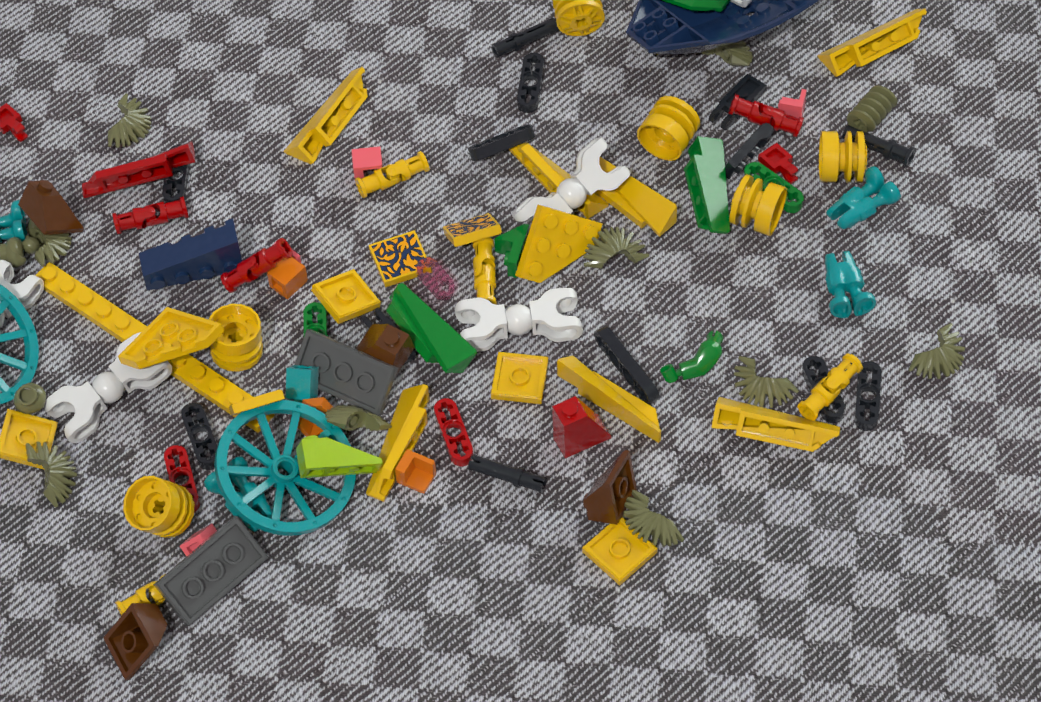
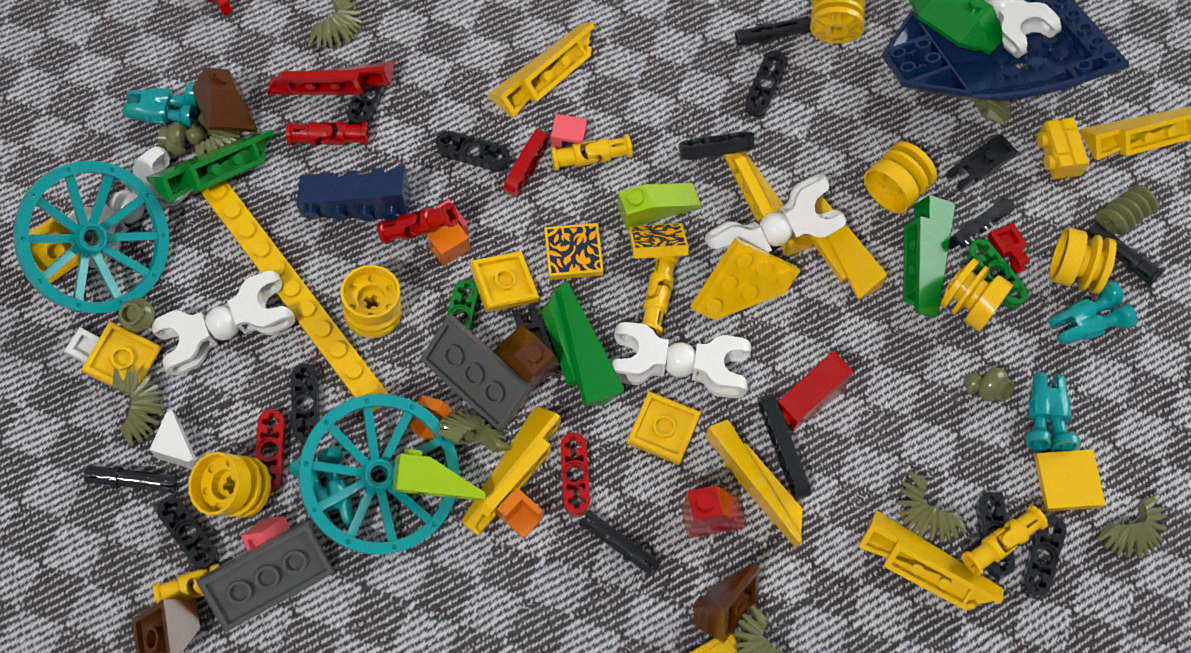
camera: 10 degrees right, 10 degrees up
(56, 265) = (211, 166): none -> green wedge
(66, 530) = (120, 477): none -> black pin
(96, 495) = (172, 443): none -> white slope
(126, 549) = (183, 512): none -> black beam
(169, 337) = (297, 289): yellow plate -> none
(254, 402) = (367, 390): yellow tile -> none
(279, 192) = (478, 160): none -> black beam
(301, 382) = (427, 374): teal brick -> none
(336, 196) = (526, 162): none -> red beam
(439, 275) = (610, 284): clear pink beam -> none
(460, 201) = (656, 202): none -> lime slope
(512, 246) = (698, 269): green slope -> none
(611, 245) = (804, 298): olive hair -> none
(641, 313) = (815, 390): none -> red slope
(704, 359) = (865, 468): green arm -> none
(752, 112) = (1008, 187): red piece -> none
(791, 274) = (992, 386): none -> olive animal
(793, 106) = (1039, 187): coral panel -> none
(804, 72) = (1062, 148): none -> yellow brick
(875, 332) = (1069, 480): none -> yellow tile

